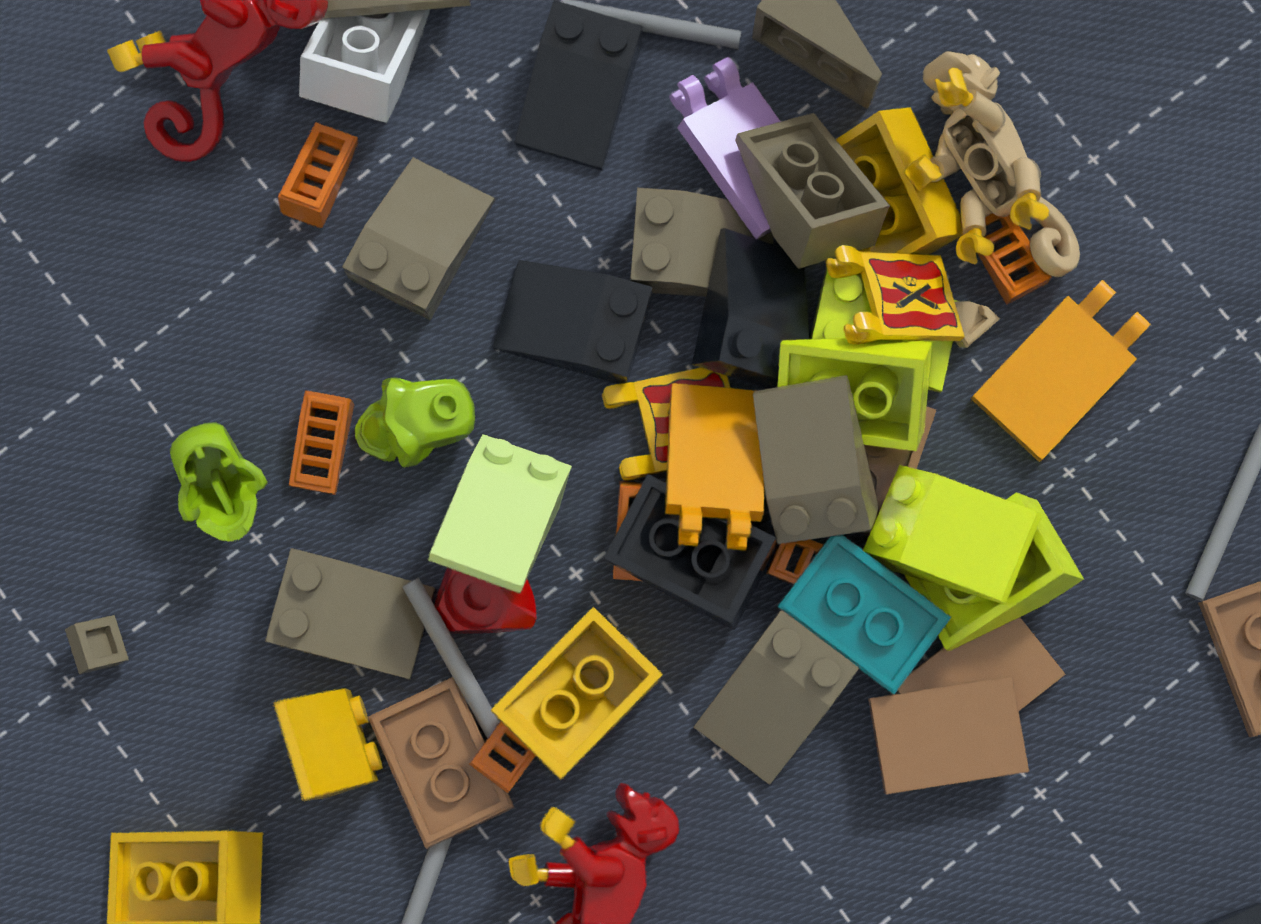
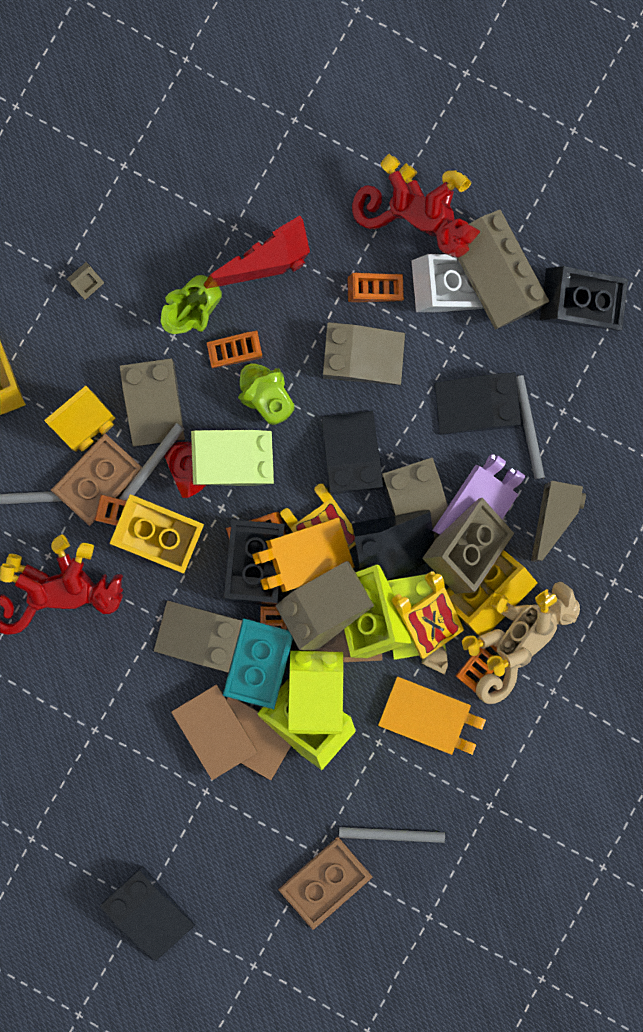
camera: 65 degrees right, 5 degrees up
(193, 323) = (278, 254): none -> red wedge

